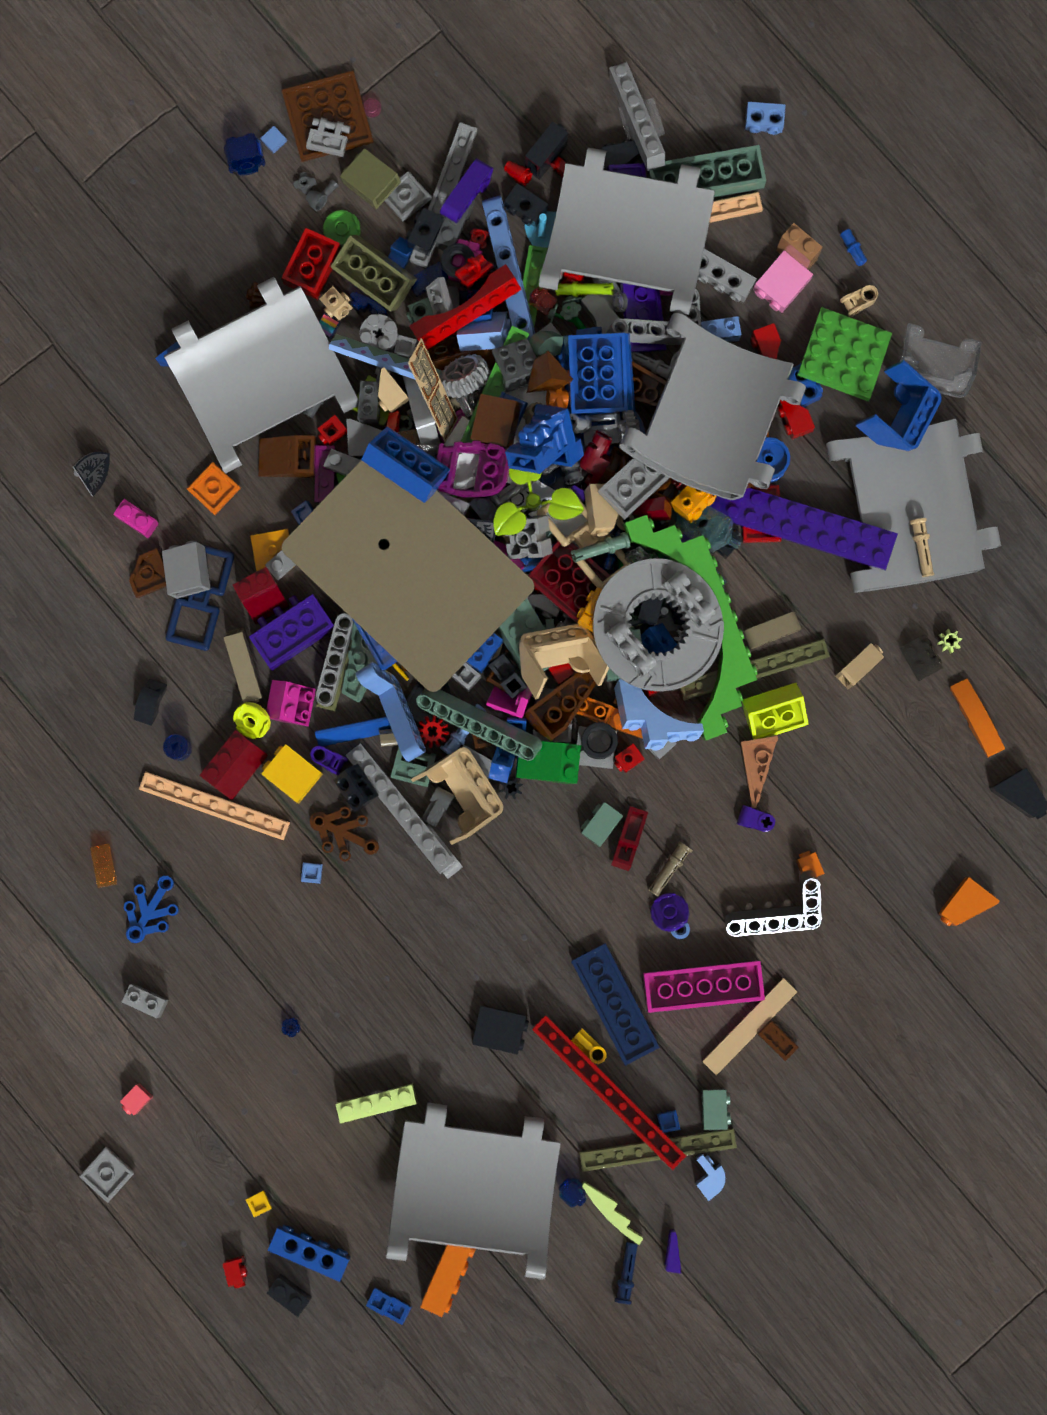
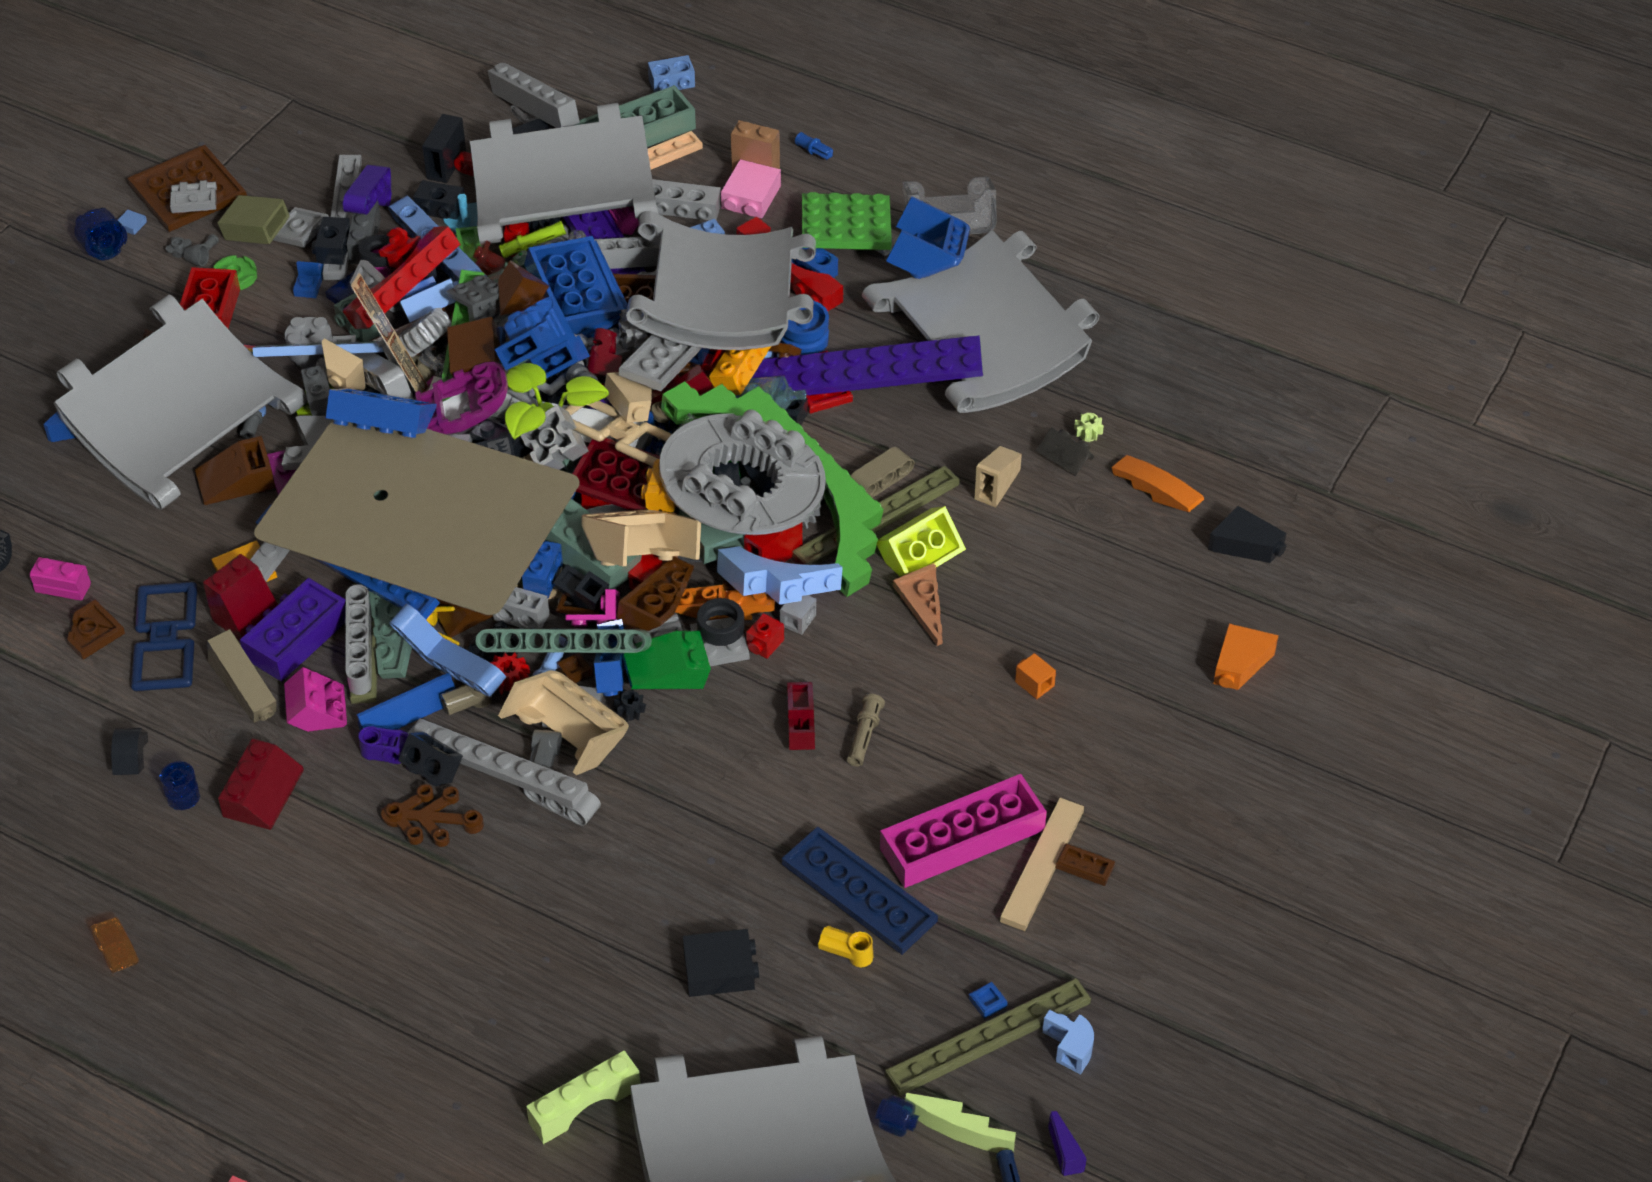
camera: 20 degrees left, 35 degrees down
(145, 1000) = (216, 1078): light grey brick -> none
(148, 911) = (194, 979): blue plant -> none
(186, 569) = (139, 604): light grey brick -> none
(213, 488) = (151, 528): orange plate -> none
(214, 805) = (248, 840): light nougat tile -> none
(258, 714) = (280, 717): neon yellow tile -> none
(290, 1032) = (432, 1044): clear blue plate -> none
(291, 773) = (341, 772): yellow brick -> none
(311, 873) = (403, 873): medium blue tile -> none
(332, 424) = (281, 435): red brick -> none
(336, 303) = (249, 327): tan brick -> none
(364, 303) = (278, 320): clear blue slope -> none
(372, 108) = (237, 170): clear pink plate -> none
(373, 272) = (284, 287): olive brick -> none
(405, 771) = (493, 728): sand green plate -> none
(519, 173) = (415, 177): red cone -> none
(601, 824) = (759, 709): sand green brick -> none
(608, 545) = (652, 424): sand green pin -> none
(609, 1092) = (894, 978): red brick -> none
(670, 912) = (885, 771): dark purple tile -> none
(684, 934) = (906, 782): medium blue plate -> none
(715, 1109) = (1041, 961): sand green brick -> none
(751, 818) = (946, 651): dark purple piece -> none
(781, 915) = (1026, 731): dark grey beam -> none
(856, 302) = (842, 180): tan piece -> none
(921, 538) = (1008, 340): tan pin -> none

